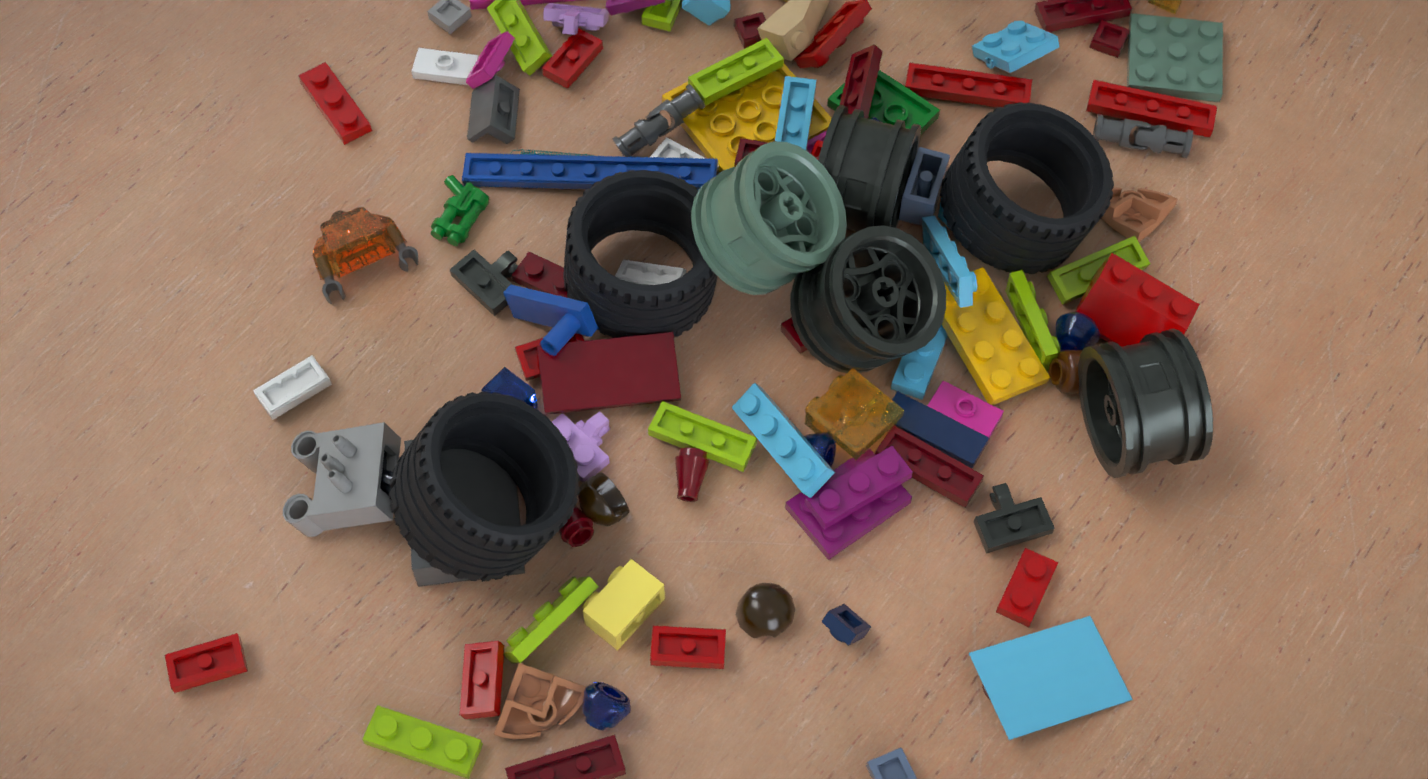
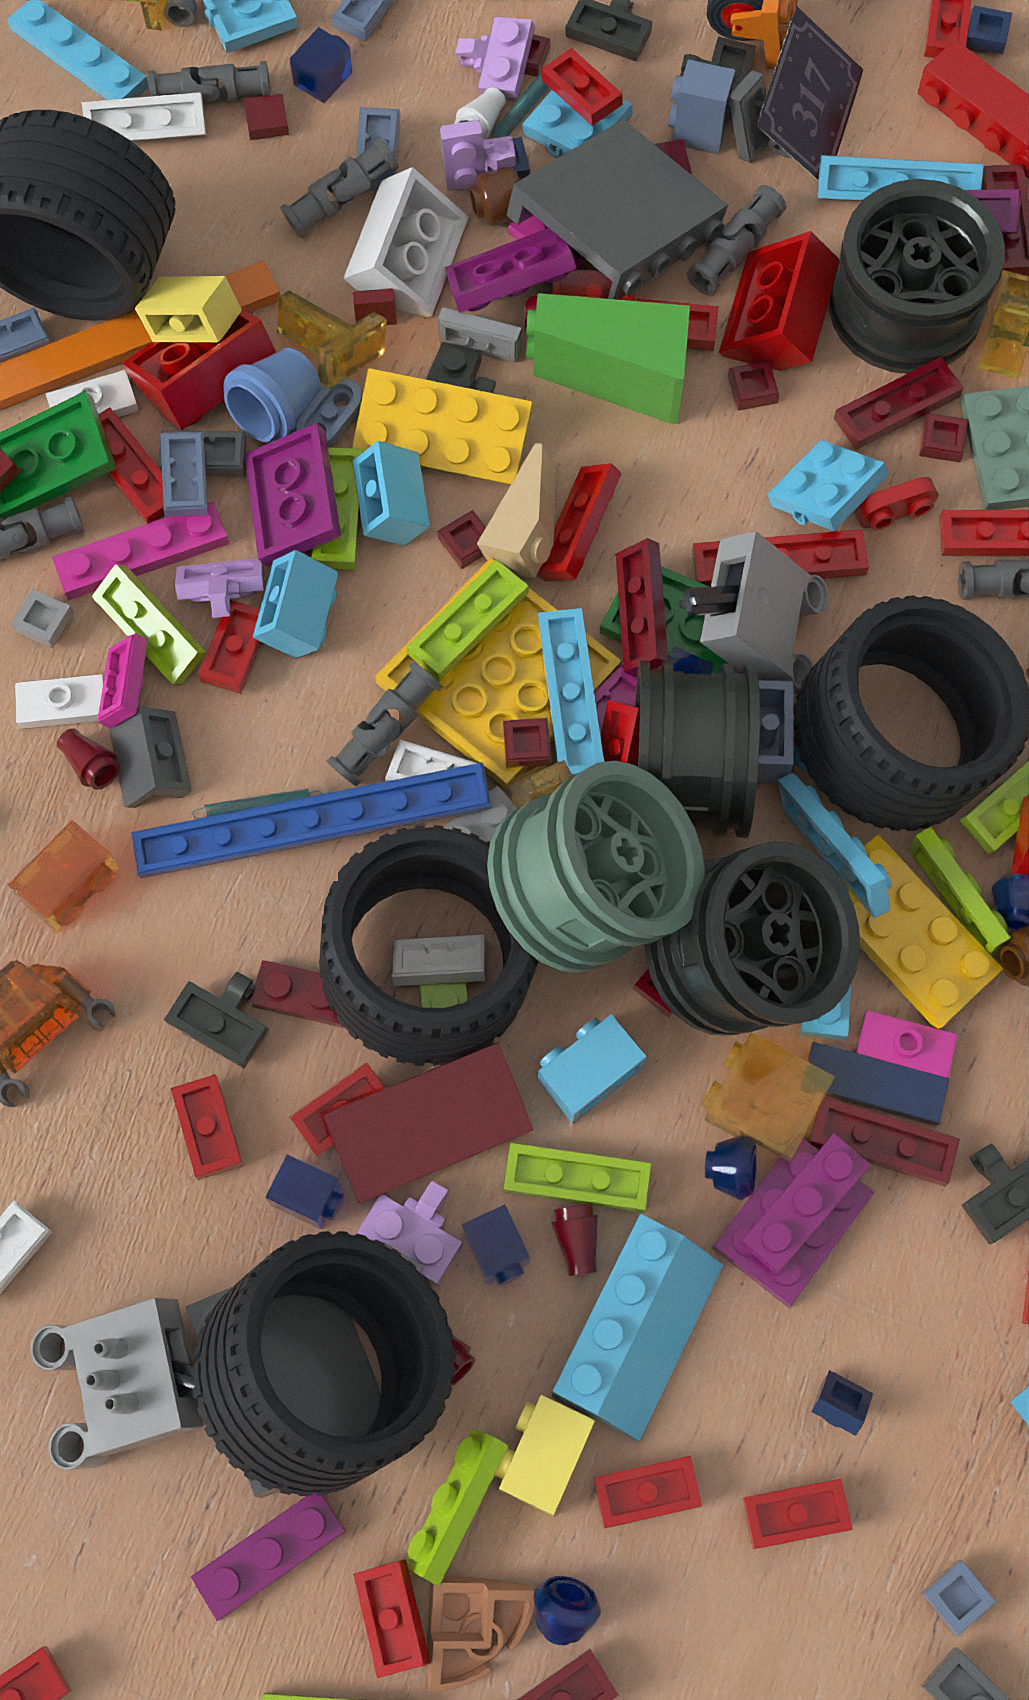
camera: 15 degrees left, 10 degrees up
(410, 620) = (267, 1555): none -> magenta plate
(411, 168) = (64, 876): none -> clear orange brick
(453, 105) = (90, 761): none -> dark red cone
(456, 343) = (206, 1127): none -> red plate
(467, 204) = (155, 908): green piece -> none
(561, 313) = (354, 1058): blue piece -> none
(602, 500) = (475, 1312): dark brown hair -> none
(622, 39) = (296, 604): none -> medium azure brick
(631, 463) = (496, 1246): none -> clear blue brick
(715, 539) = (638, 1328): none -> medium azure slope
(733, 369) = (590, 1067): none -> medium azure brick
(765, 610) = (730, 1408): dark brown hair -> none
(783, 440) = (689, 1163): medium azure plate -> none
(791, 688) = (797, 1513): none -> red plate
(938, 98) = (757, 608): none -> light grey piece
(1062, 69) = (896, 502): none -> red plate

